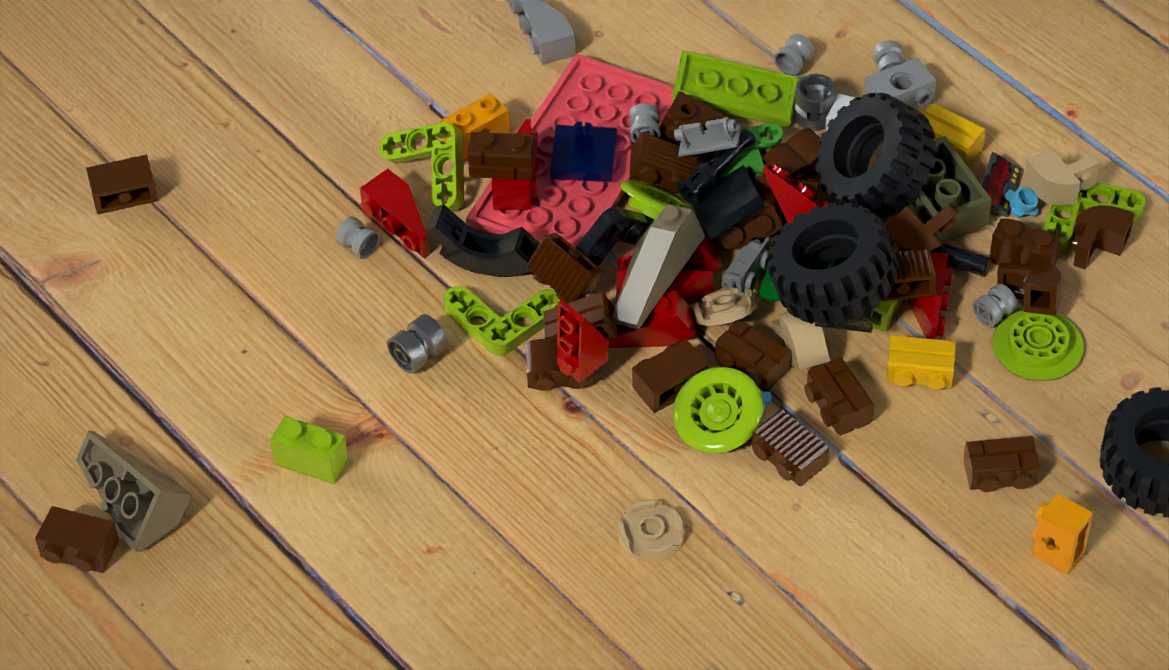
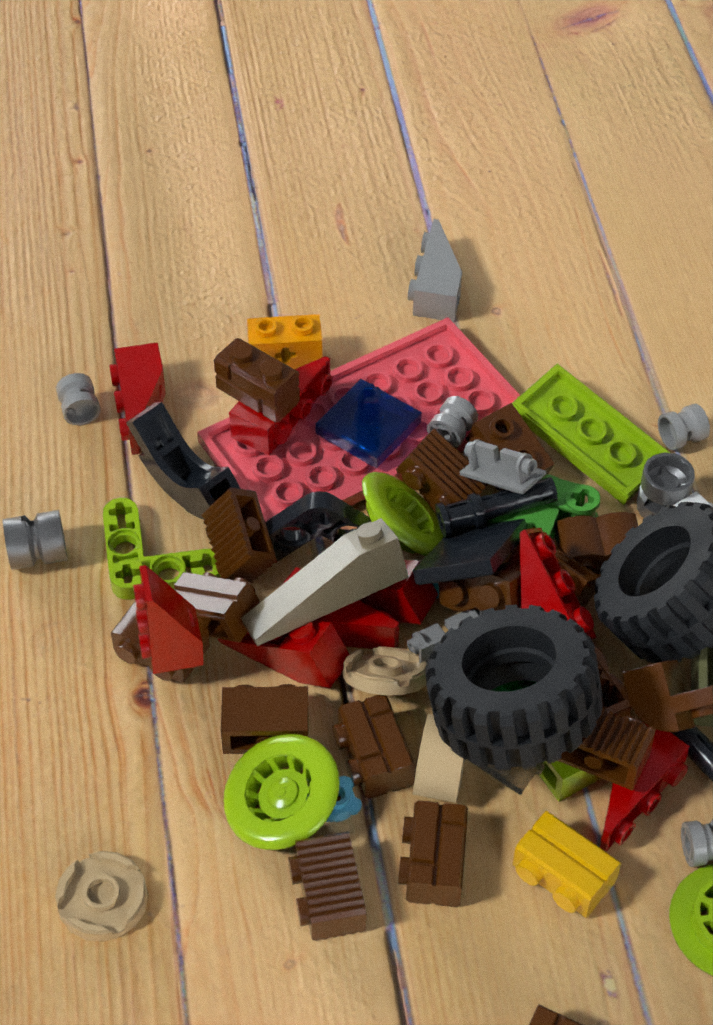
camera: 30 degrees right, 0 degrees up
(440, 154) = (202, 396): lime beam -> none

